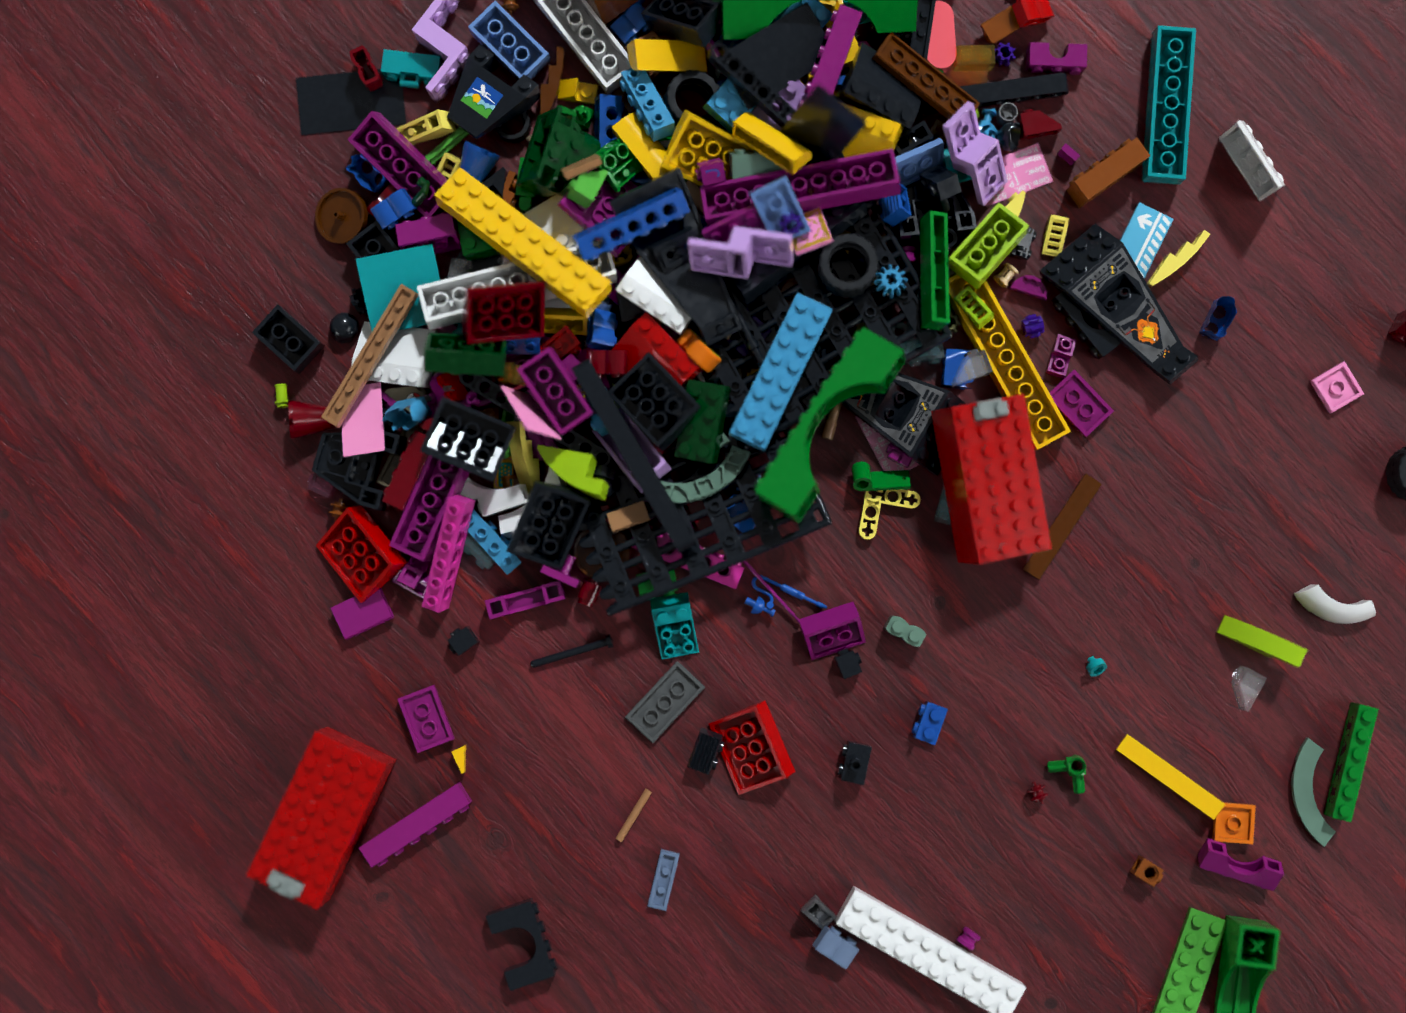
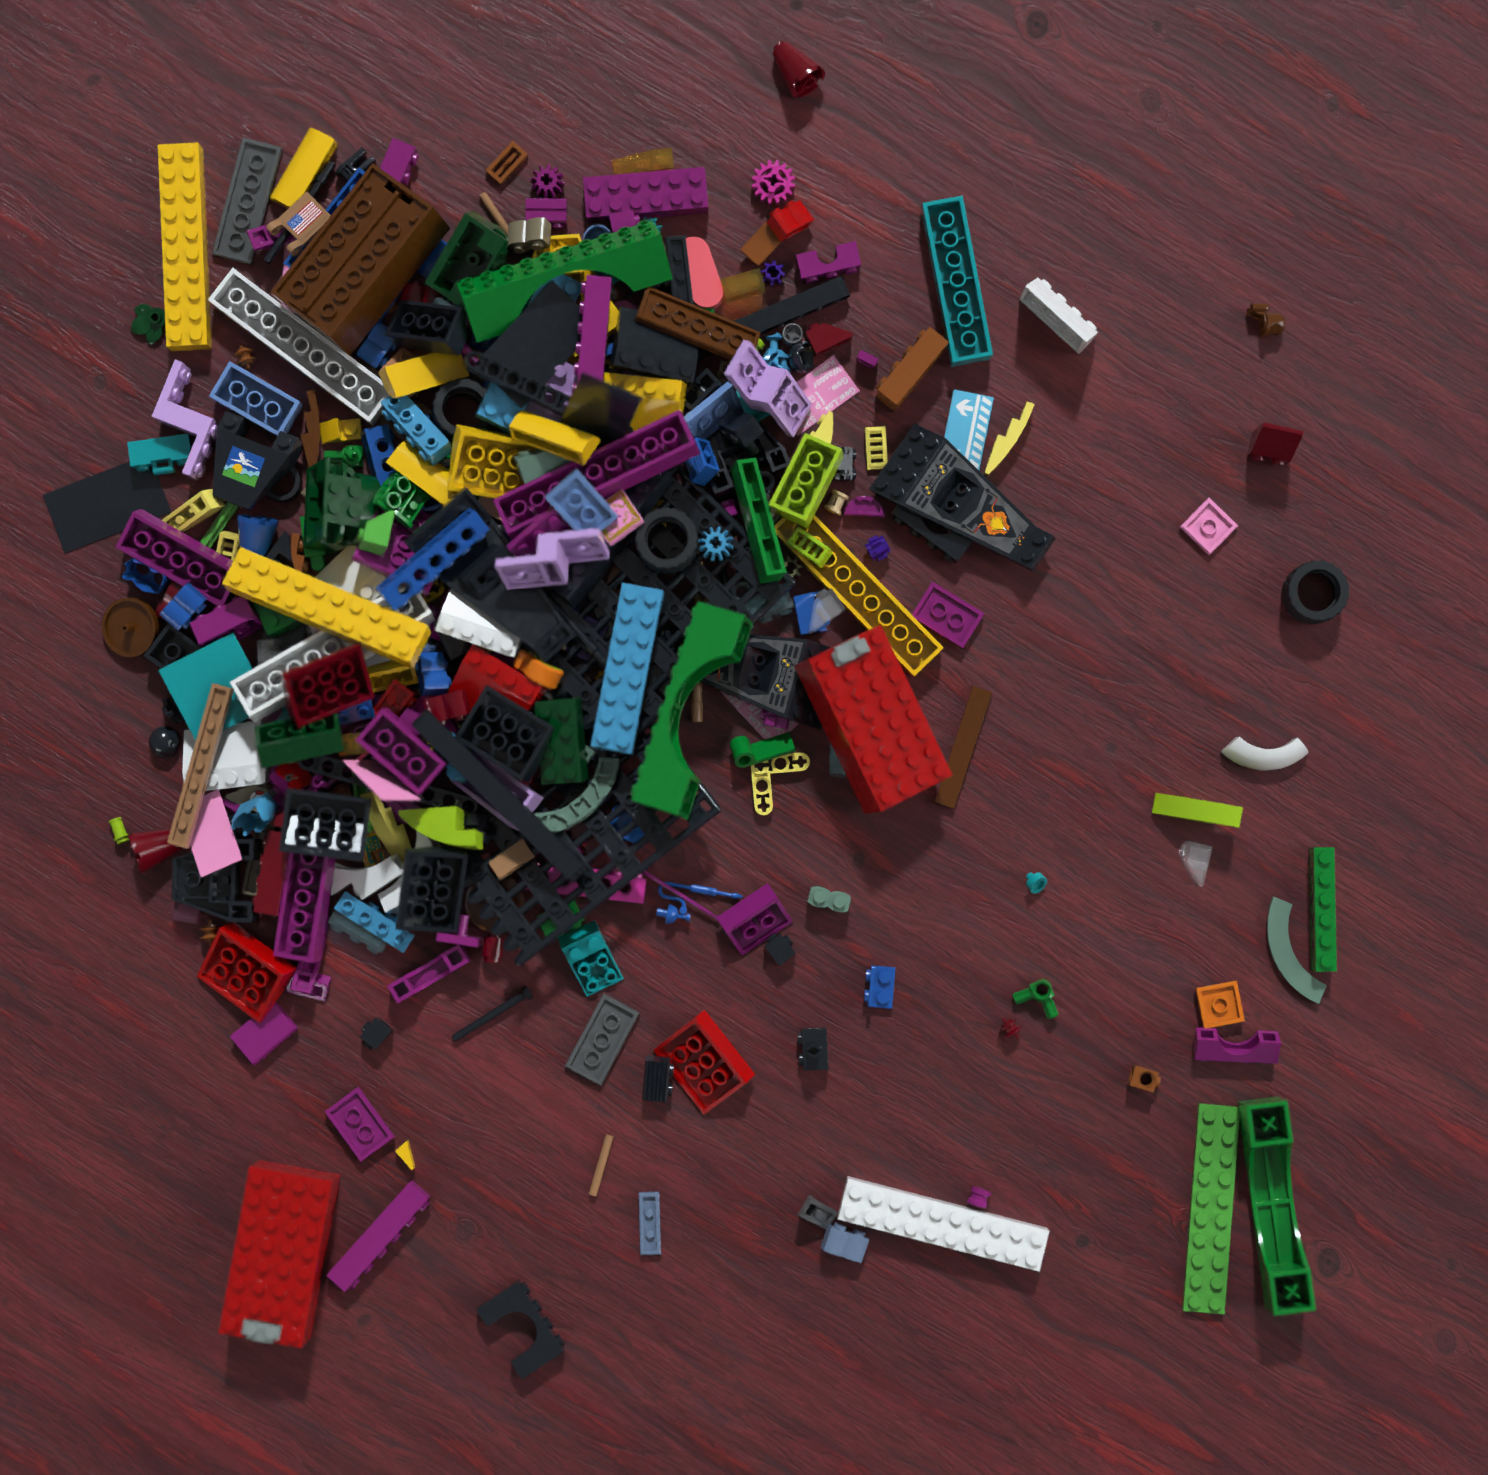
camera: 15 degrees left, 0 degrees up
(288, 339) = (110, 770): black brick -> none
(366, 68) = (115, 468): dark red brick -> none
(423, 192) = (209, 583): dark green arm -> none
(448, 553) = (336, 947): dark pink brick -> none
(581, 166) = (365, 514): medium nougat tile -> none
(710, 172) = (500, 482): magenta brick -> none
(787, 218) = (589, 514): dark purple gear -> none
(1060, 356) = (915, 571): magenta slope -> none
(1170, 776) = (1141, 975): yellow tile -> none
(1229, 305) = (1073, 470): blue piece -> none

